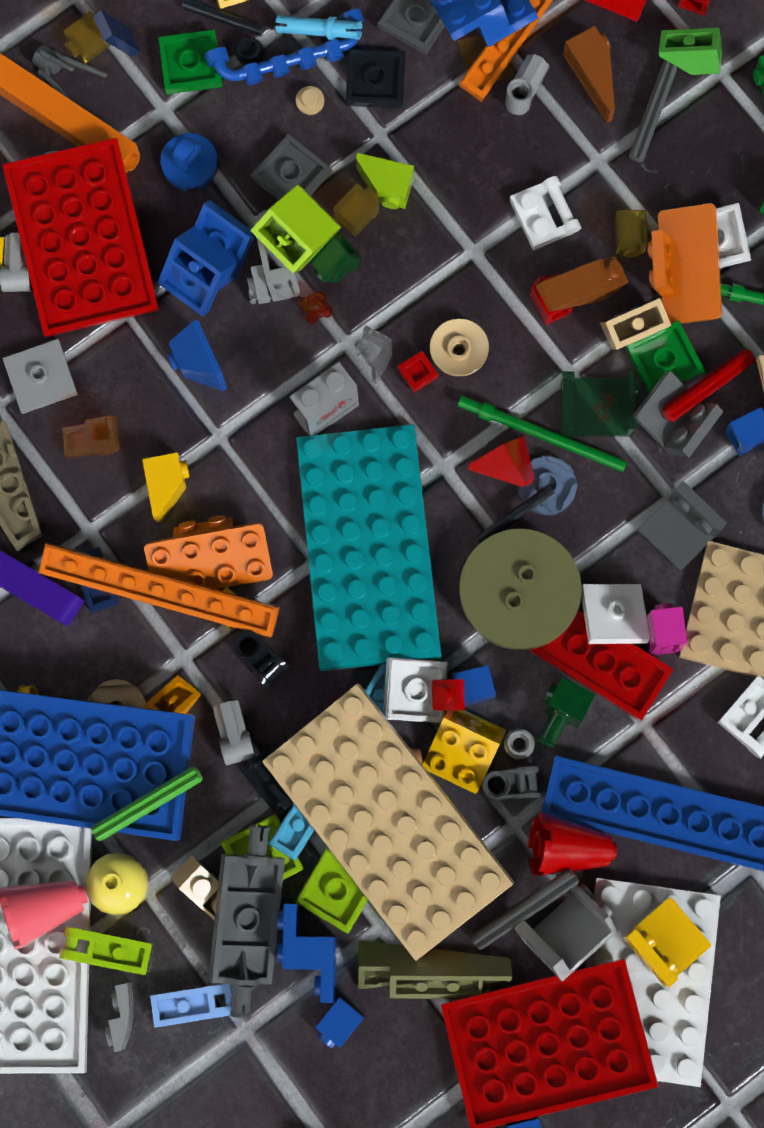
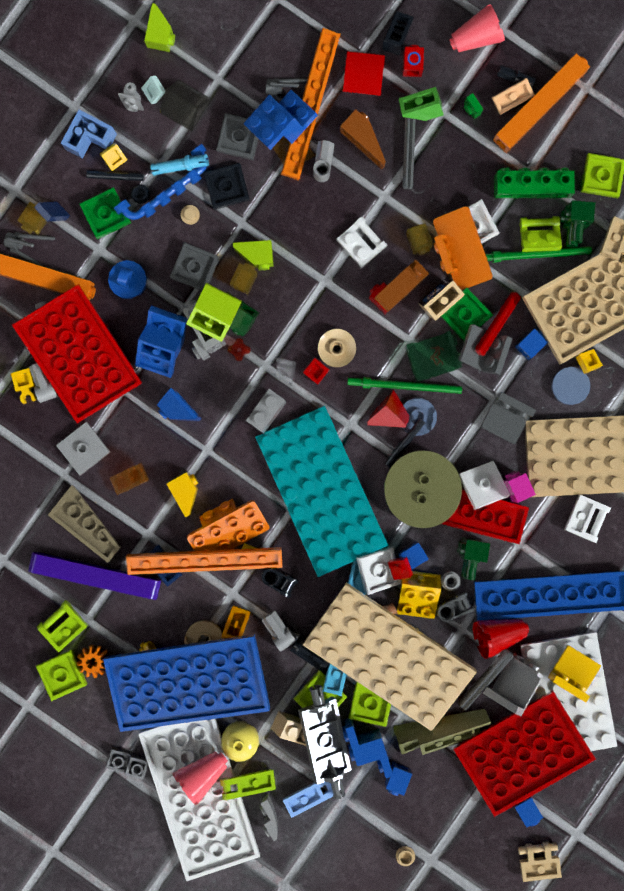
camera: 20 degrees left, 10 degrees up
(146, 803) = (244, 696): bright green axle -> none

